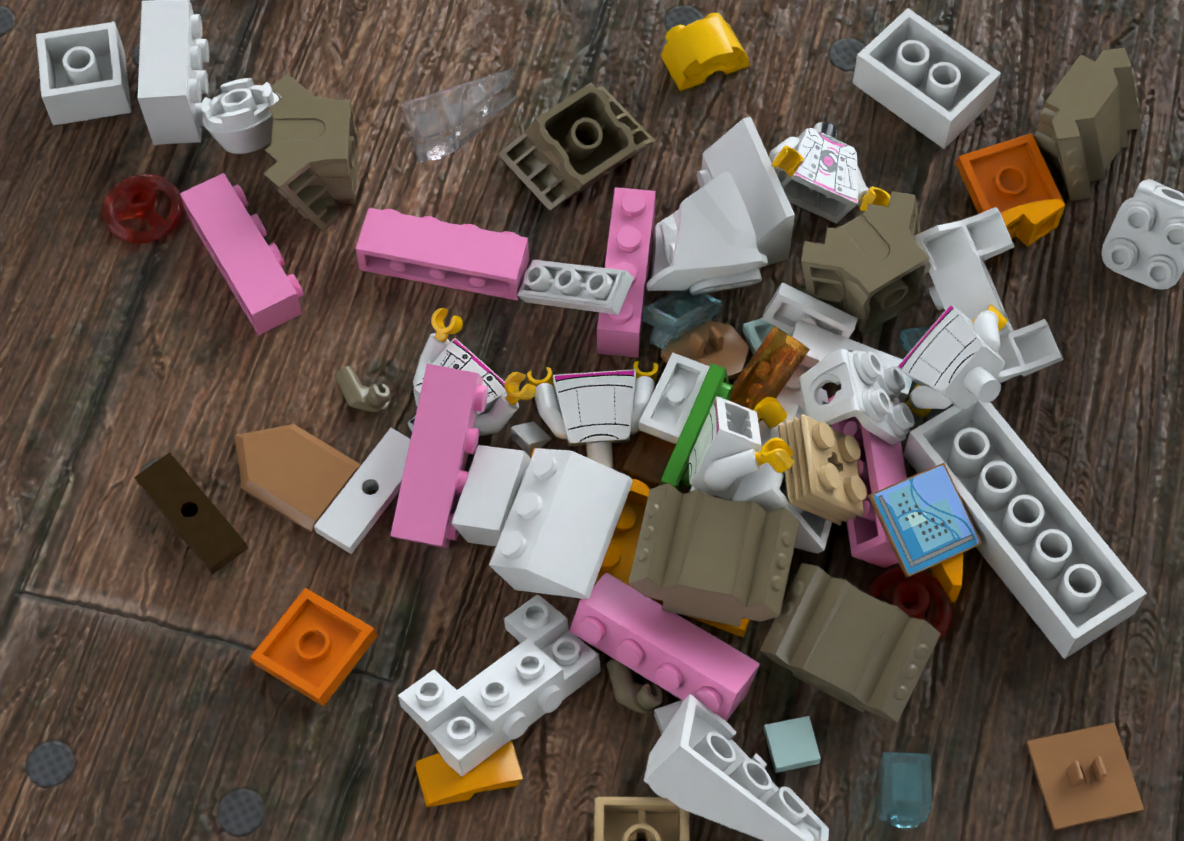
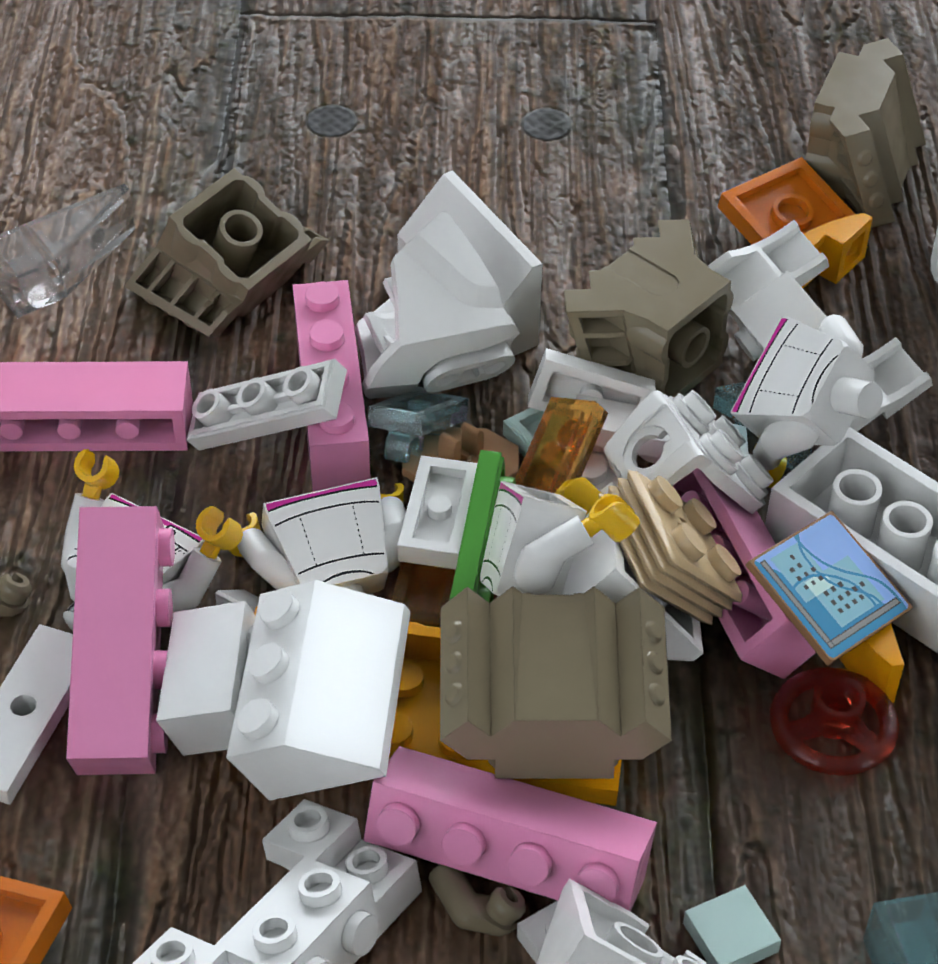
camera: 15 degrees left, 15 degrees down
(702, 49) = (361, 139): yellow cylinder -> none
(823, 174) = (560, 232): torso -> none
(849, 643) = (779, 766): dark tan slope -> none
(926, 78) = (653, 121): white brick -> none

